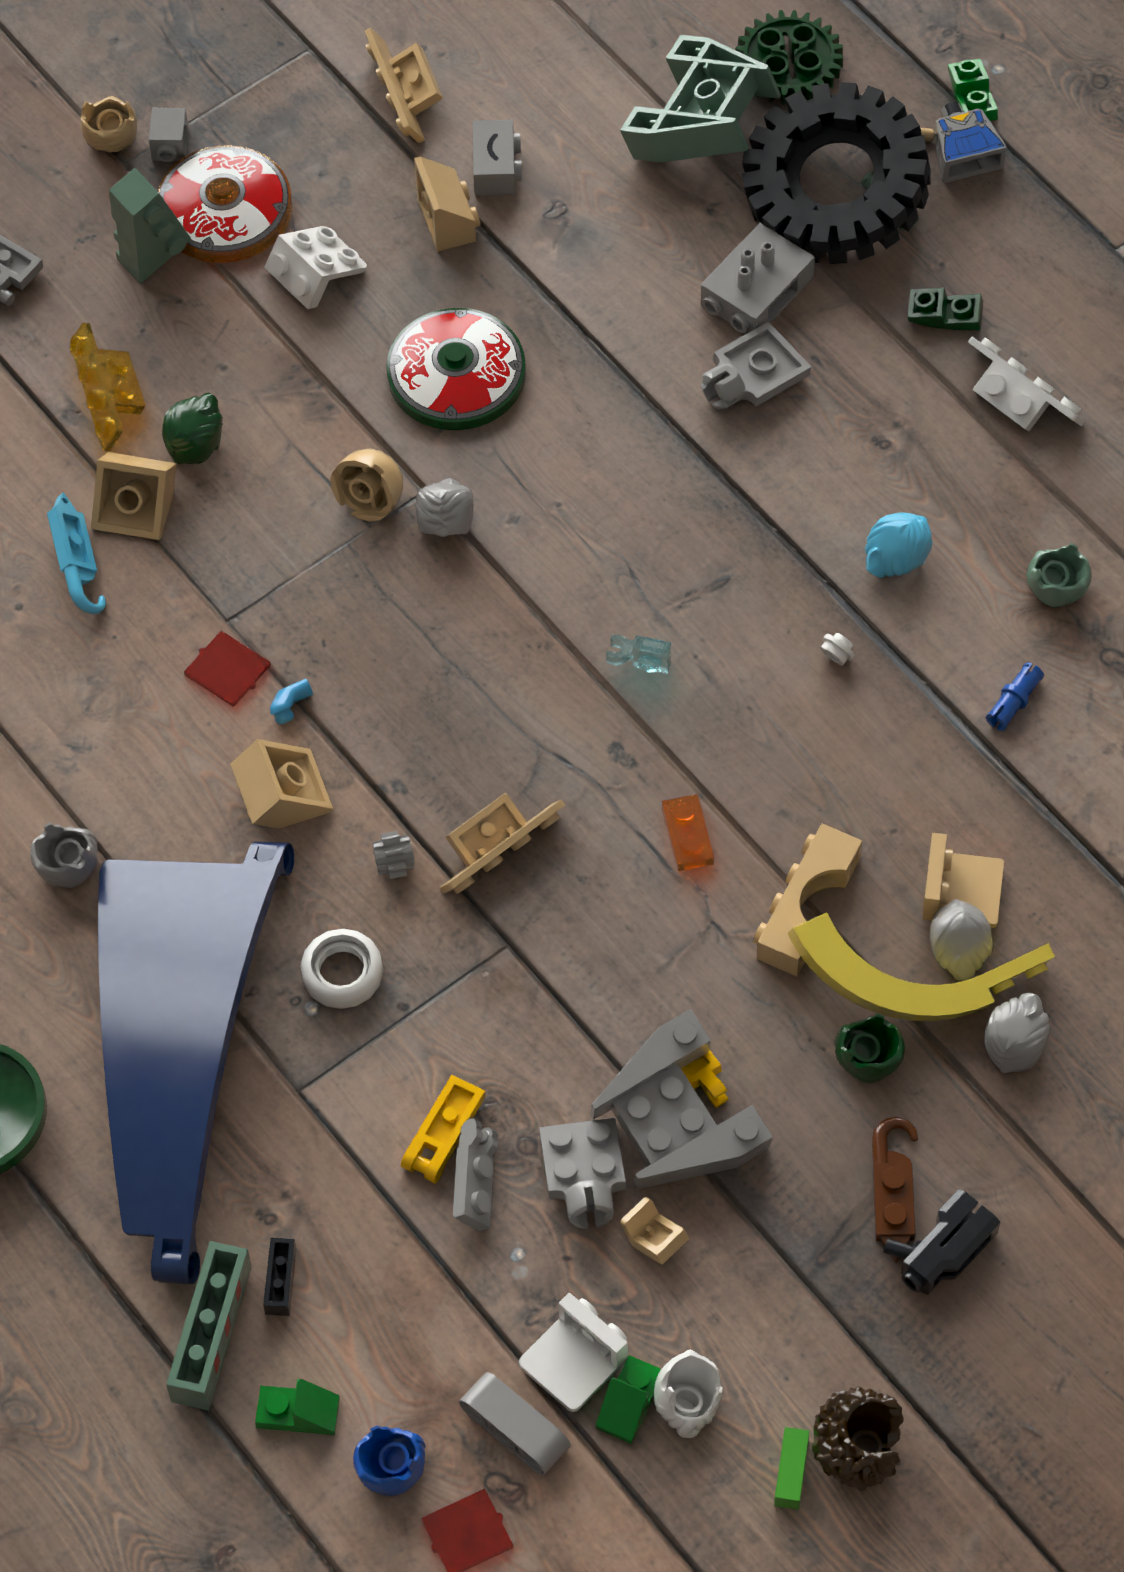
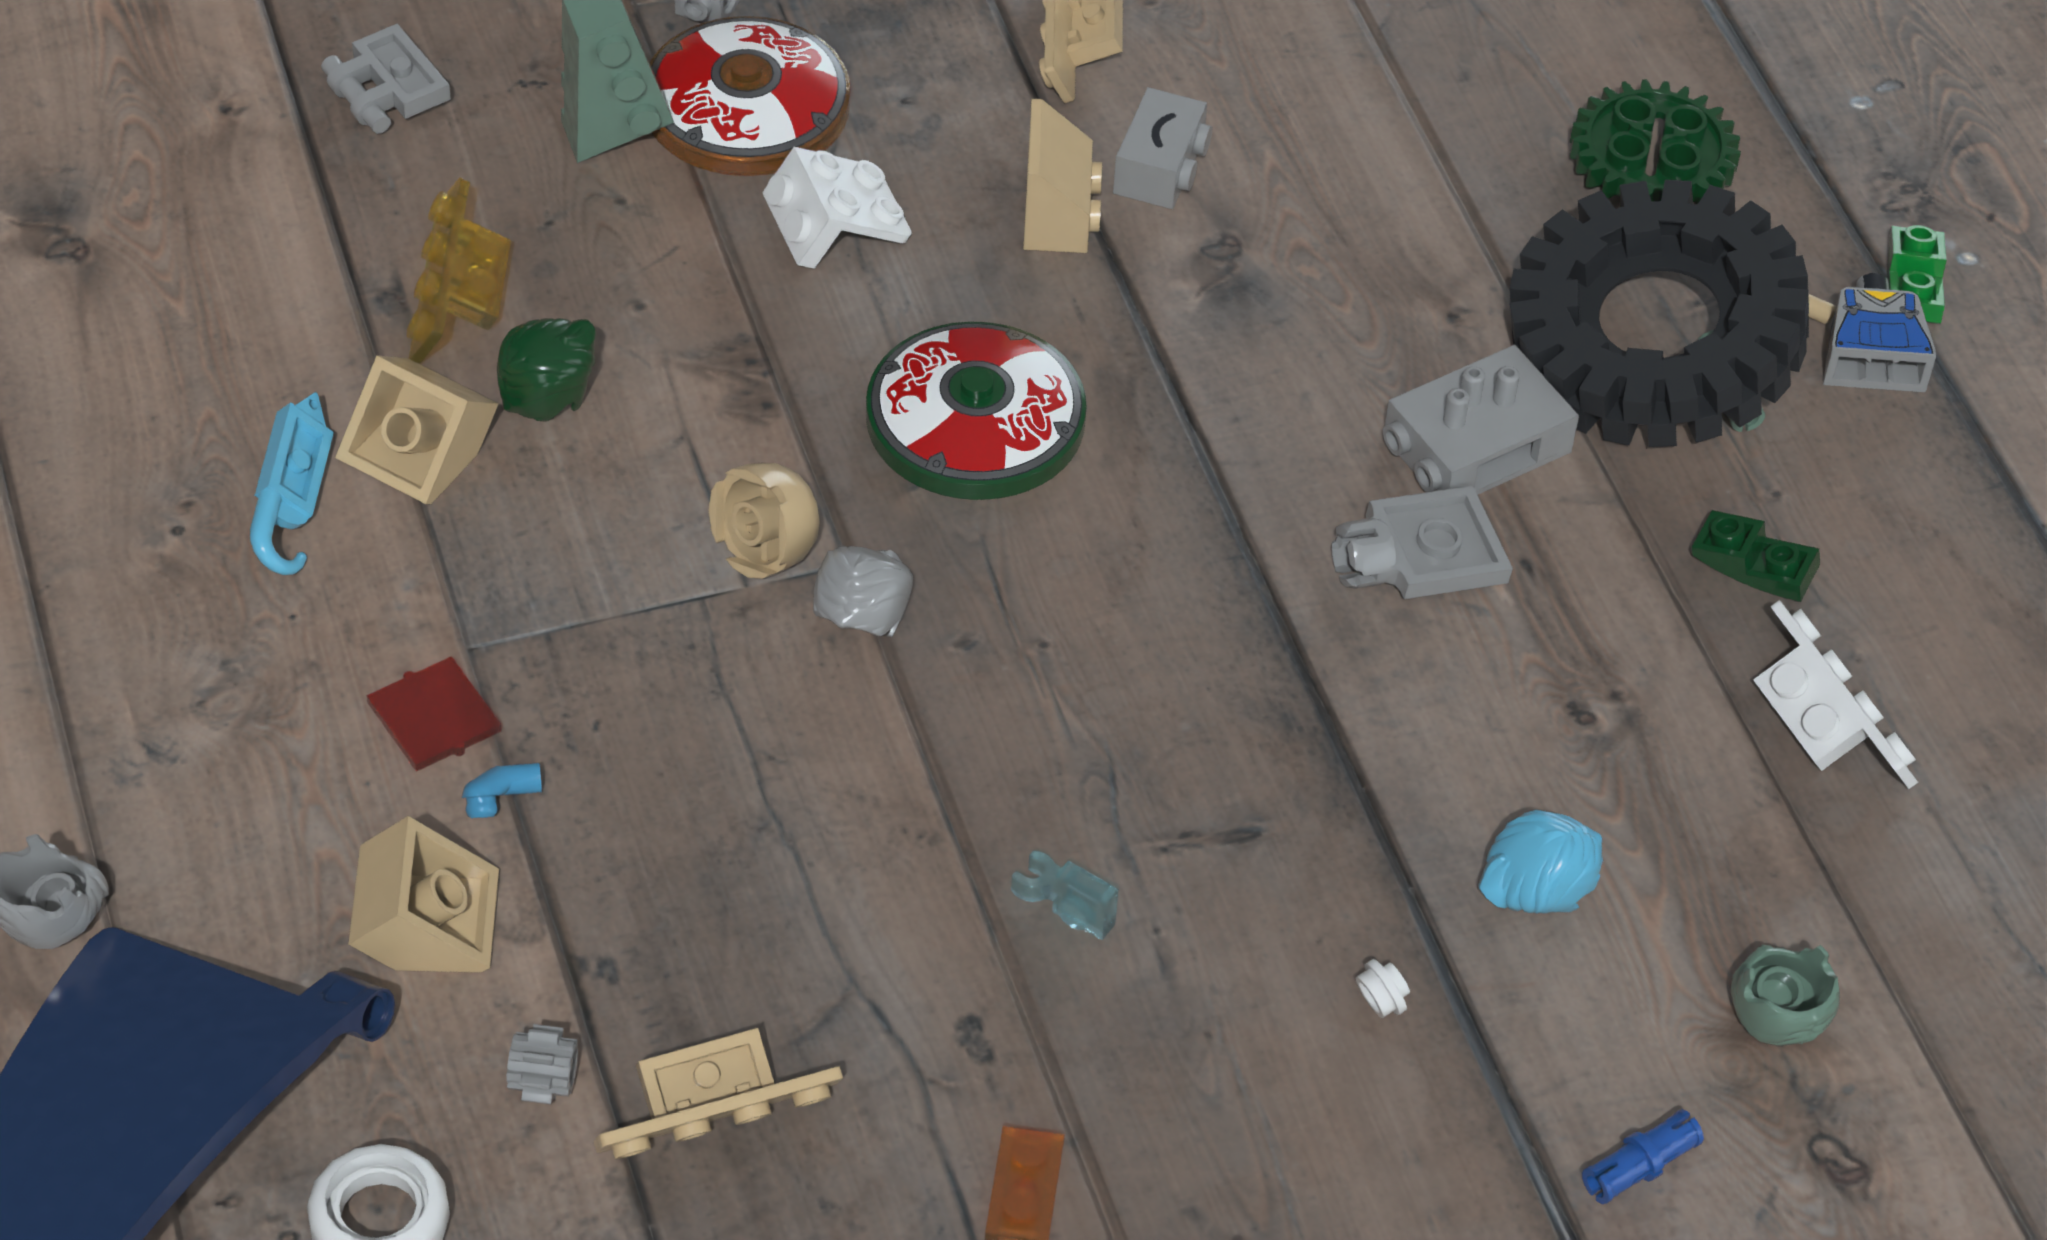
camera: 15 degrees right, 10 degrees down
(706, 106) = (1492, 167): sand green wedge -> none

